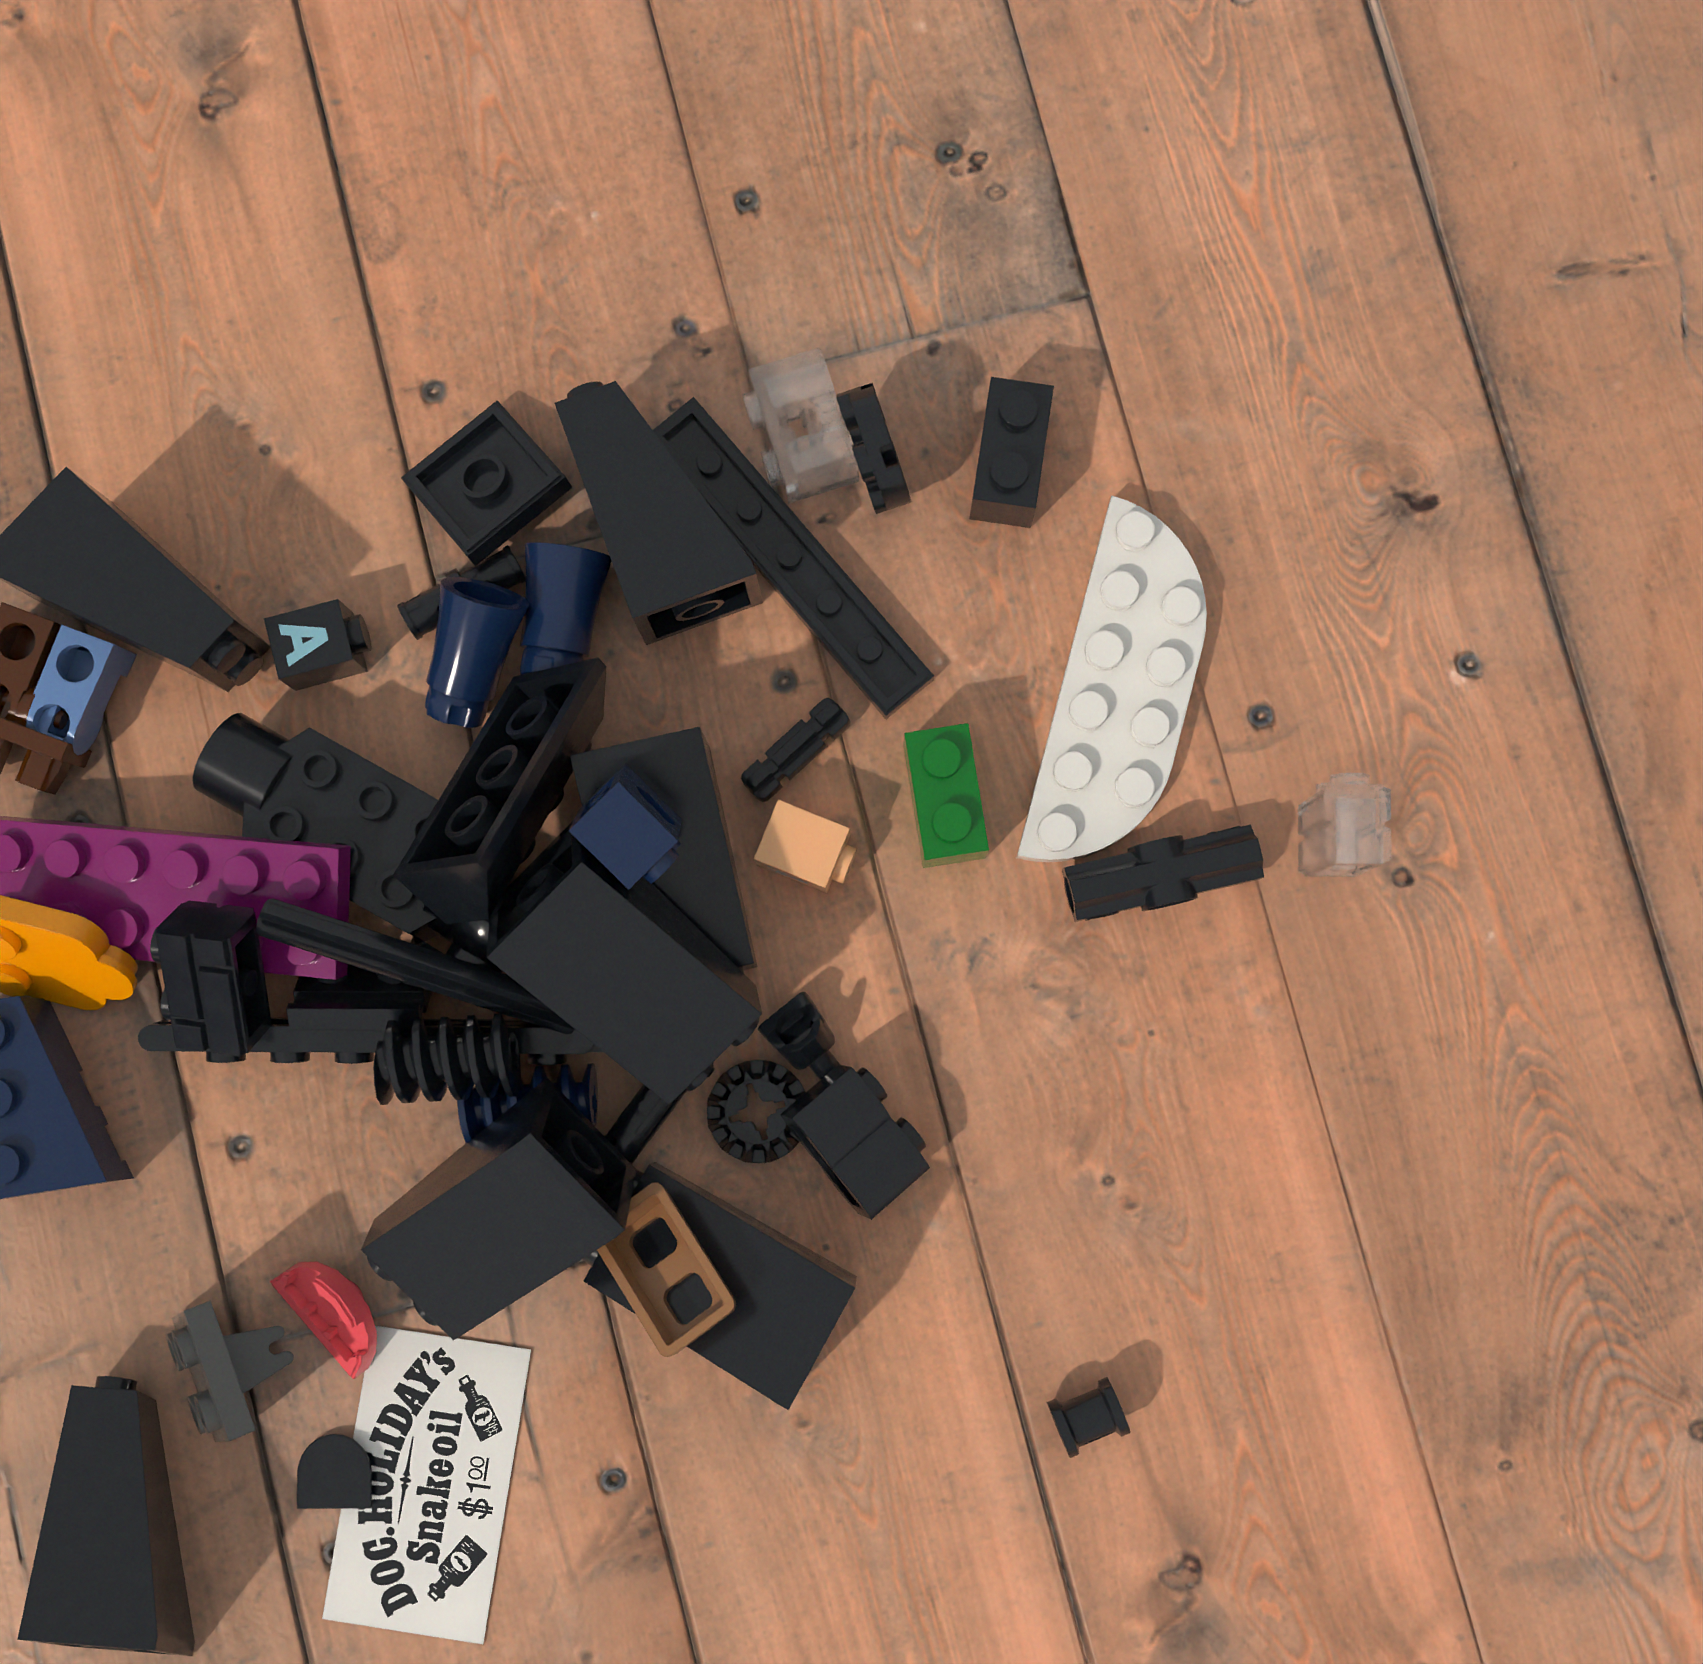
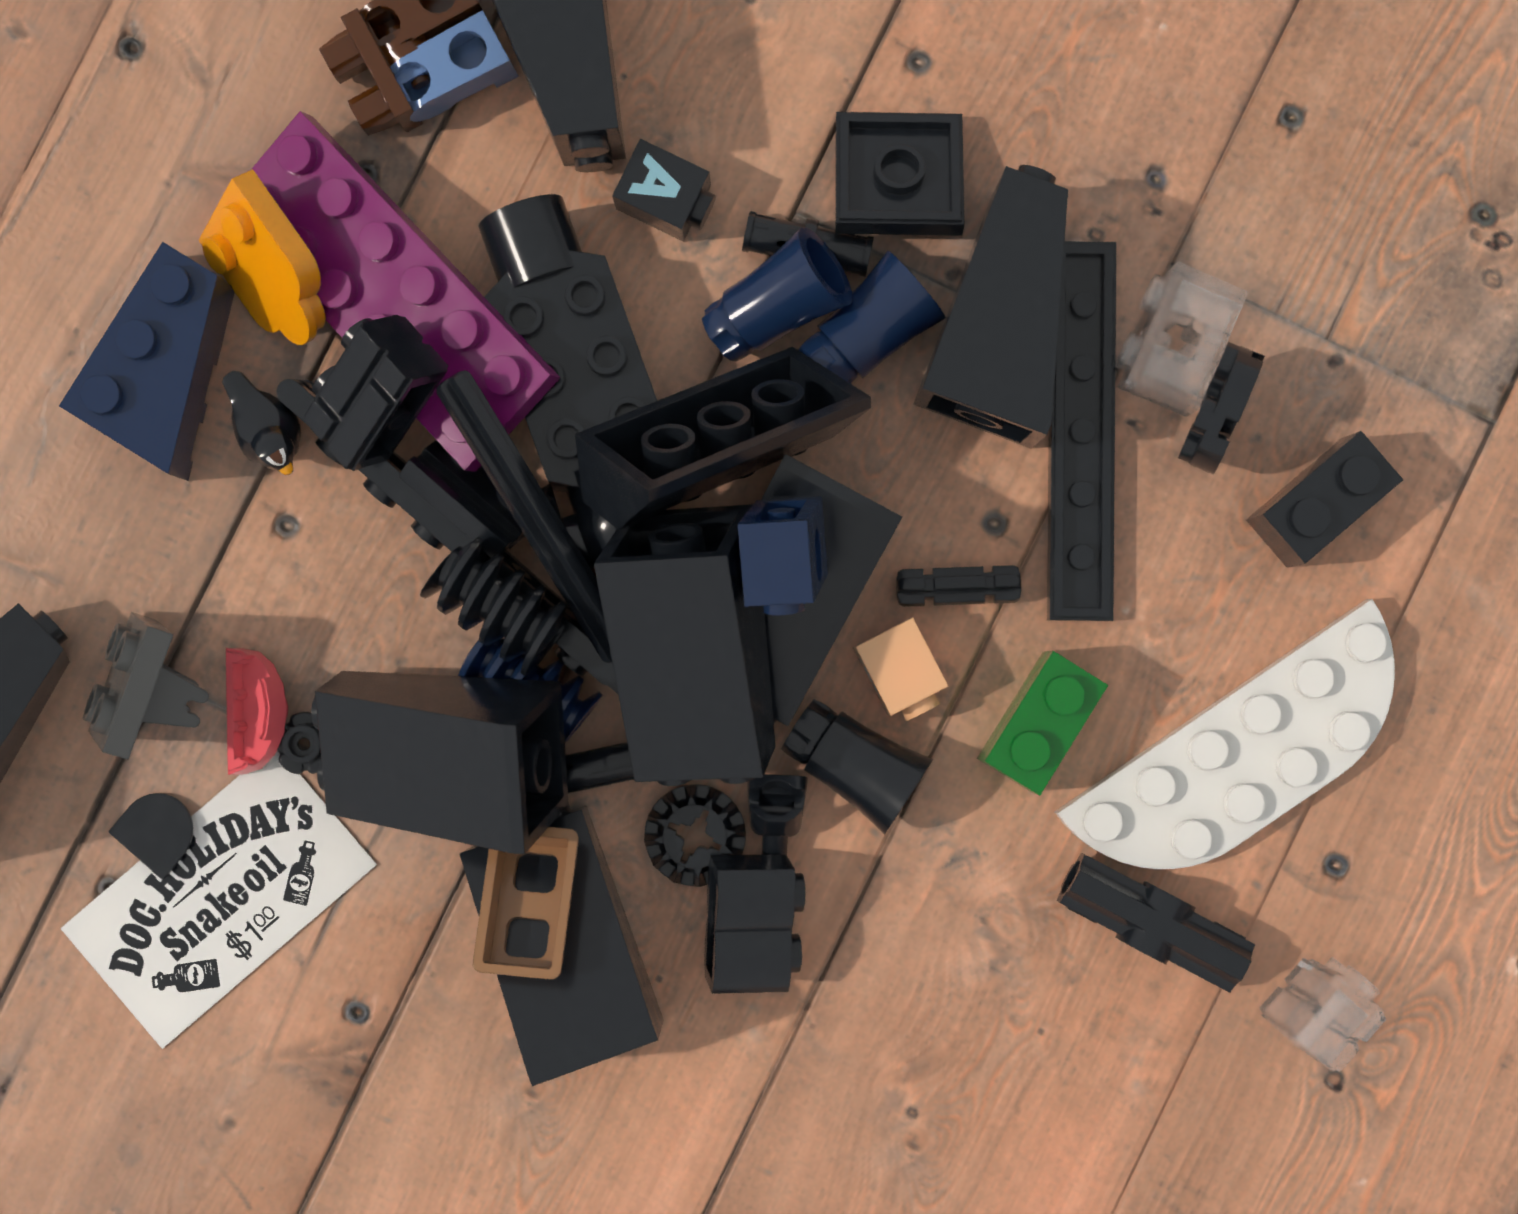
camera: 35 degrees right, 5 degrees up
(151, 1081) = (262, 424): none -> black animal
(391, 1321) = (291, 755): none -> black plate
(832, 947) = (856, 762): none -> black plant

